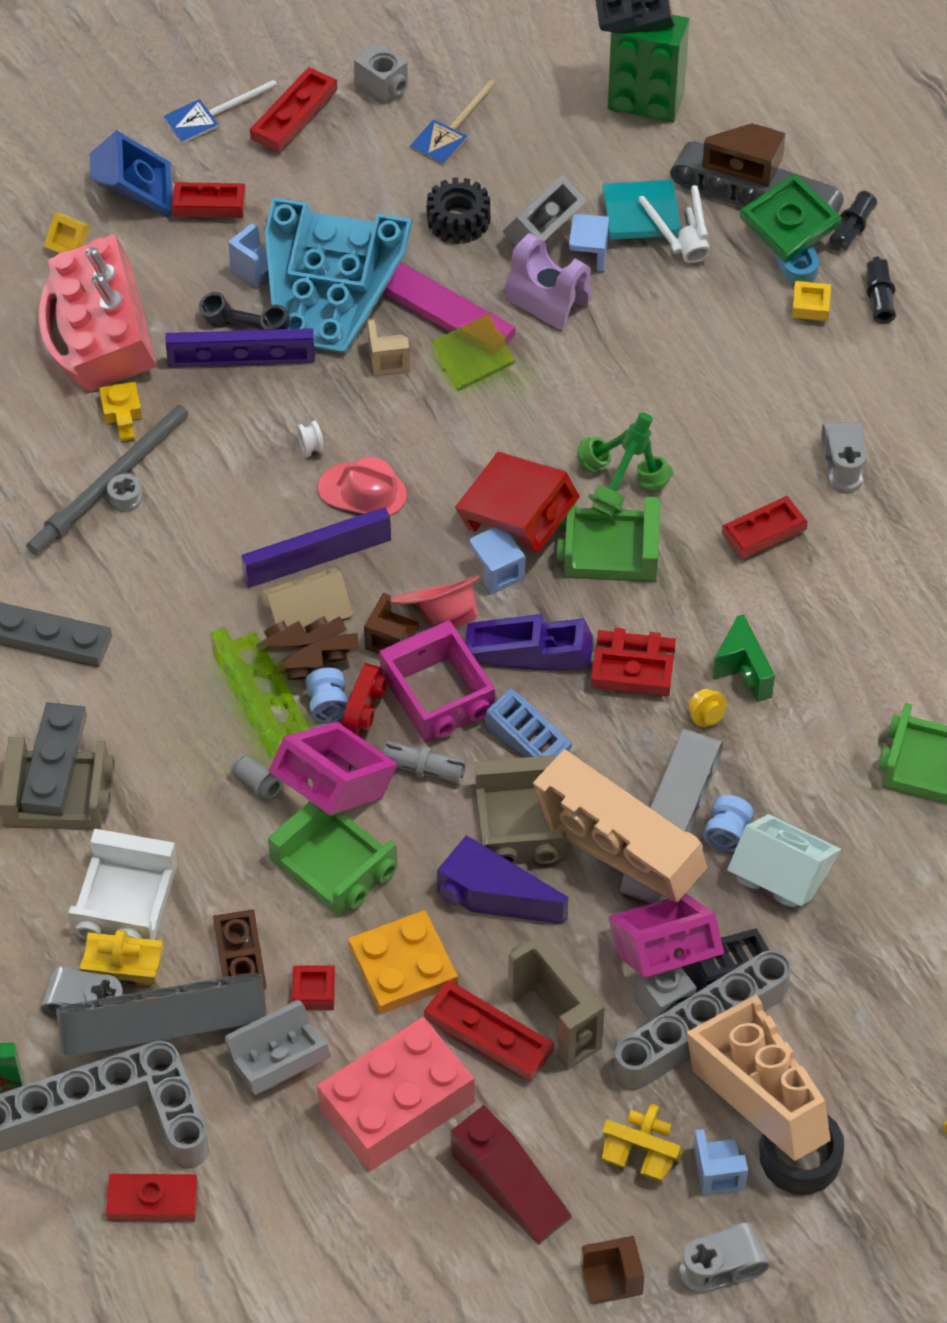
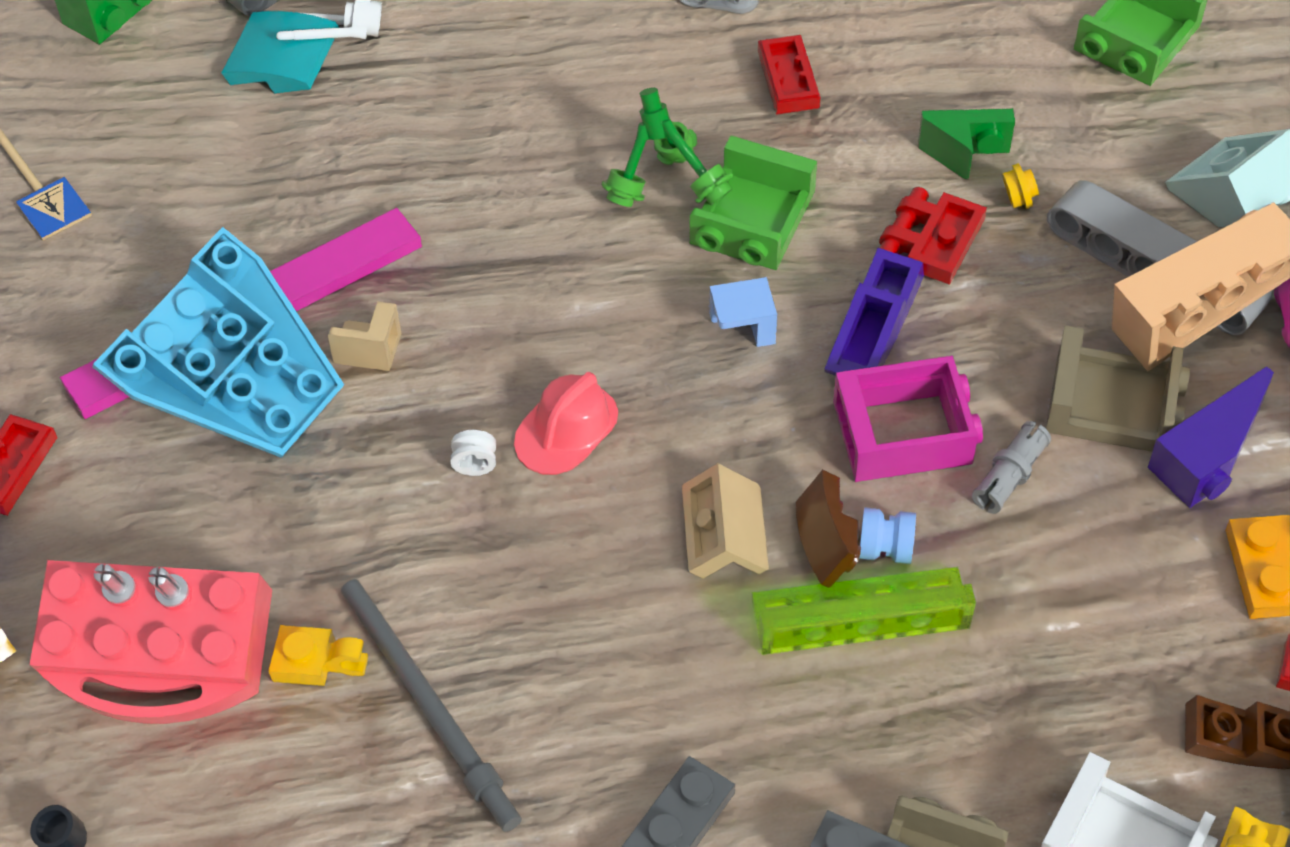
camera: 70 degrees left, 0 degrees up
(119, 485) = (461, 670): light grey bush -> none
(219, 313) = (206, 501): black bar -> none
(240, 347) = (287, 488): dark purple tile -> none
(248, 257) = (144, 442): light blue panel -> none
(256, 776) = (994, 640): light grey pin -> none
(293, 638) = (796, 535): reddish brown slope -> none
(316, 547) = (652, 491): dark purple tile -> none
(327, 759) = (1025, 573): dark pink window -> none
(331, 857) = (1128, 593): bright green panel -> none
(359, 709) = (891, 492): red plate -> none
(386, 627) = (805, 451): reddish brown panel -> none
(444, 602) = (786, 380): coral piece -> none
(458, 225) = (177, 194): black tyre -> none
(473, 352) = (415, 257): clear neon green piece -> none
(510, 712) = (1007, 368): medium blue slope -> none
(519, 499) = (680, 260): red panel -> none
(544, 287) = (366, 156): lavender piece -> none
(546, 212) = (253, 127): light grey brick -> none
(590, 234) = (304, 96): light blue panel -> none
(728, 822) = (1181, 209): light blue wheel -> none

